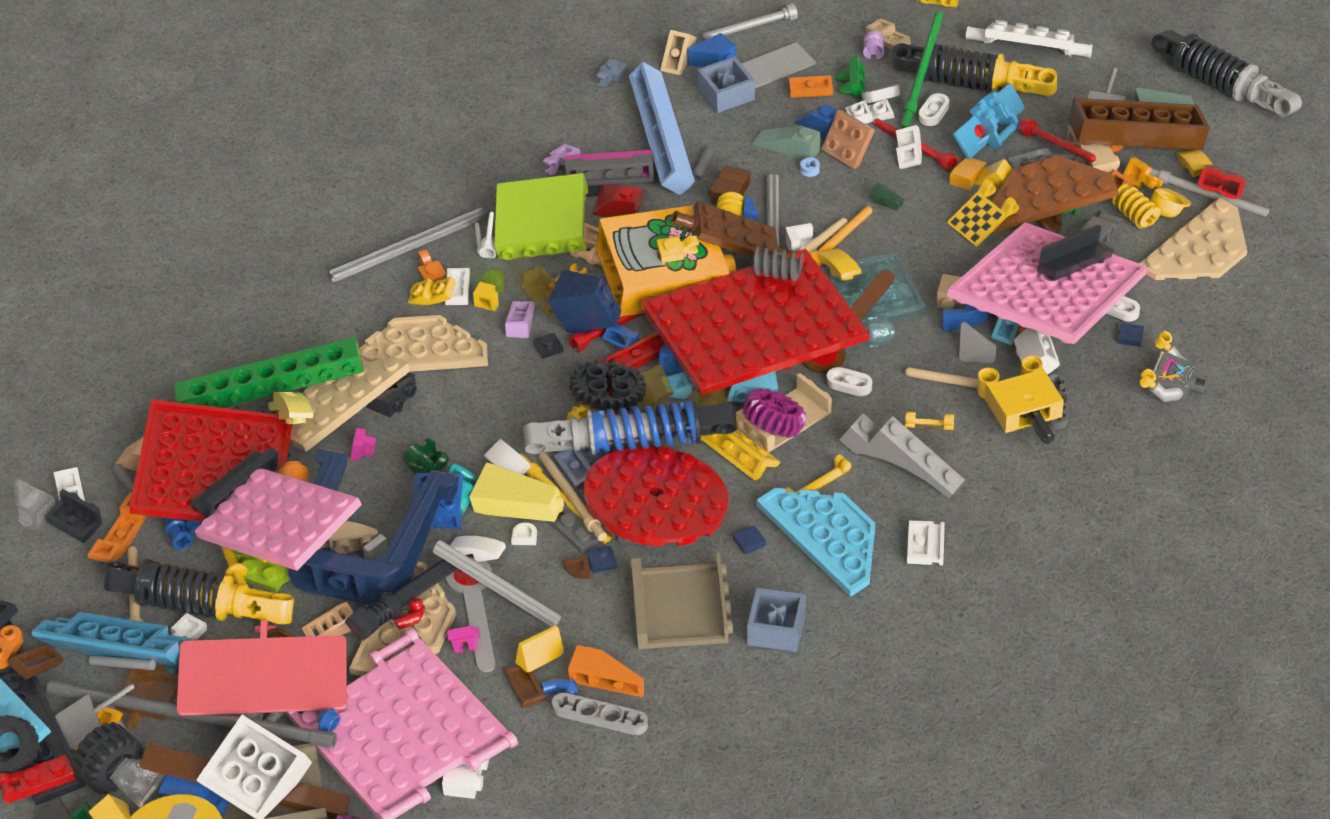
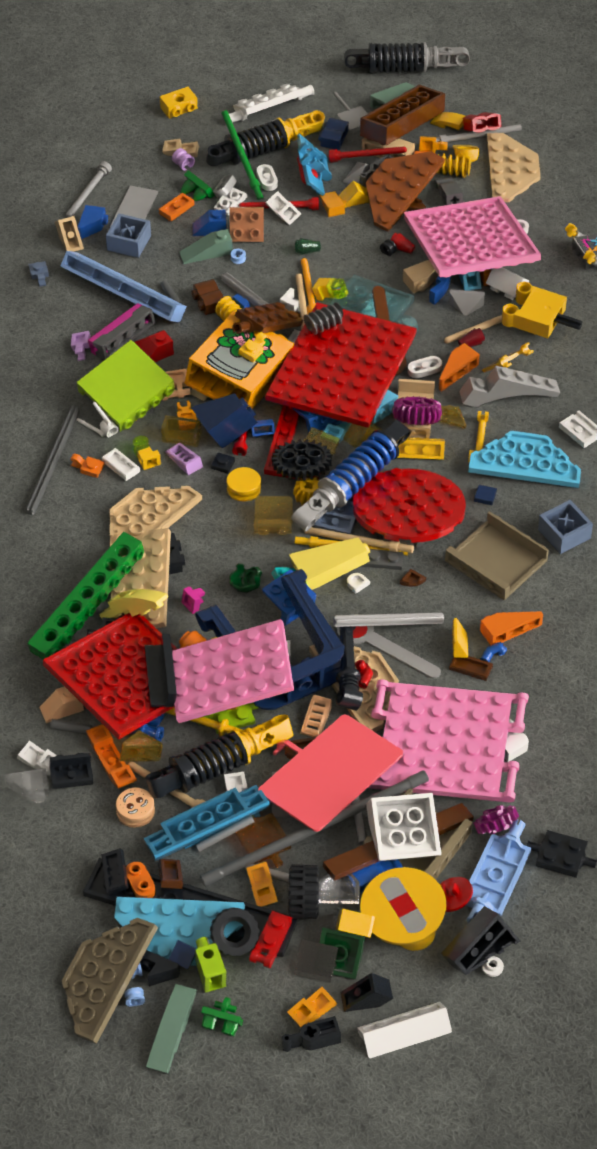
camera: 45 degrees left, 5 degrees up
(81, 717) = (248, 884): light grey piece -> none
(84, 586) = (135, 807): none -> light nougat head
(148, 537) = (141, 748): none -> clear yellow slope
(328, 720) = (409, 766): blue plate -> none
(429, 293) = (110, 479): yellow slope -> none
(461, 635) = (405, 663): dark pink tile -> none
(481, 547) = (349, 605): white slope -> none
(506, 457) = (288, 544): white slope -> none
(522, 412) = (273, 515): none -> clear yellow bracket
(538, 375) = (243, 484): none -> yellow head
(601, 559) = (420, 564): dark blue tile -> none
(601, 710) = (532, 649): light grey beam -> none
(815, 445) = (453, 416): none -> clear yellow piece
(840, 264) = (345, 300): yellow slope -> none
(852, 246) = (330, 288): none -> leg
(883, 399) = (460, 362): none -> orange slope
(931, 385) = (473, 338): none -> dark red cone
(964, 247) = (388, 247): none -> black bush
(980, 216) = (376, 225): yellow flag -> none
(981, 246) = (403, 243): none -> red cone
(1053, 106) = (334, 133): none -> dark blue brick
(1073, 254) = (467, 214): black panel -> none
(1130, 334) = (539, 240): dark blue tile -> none

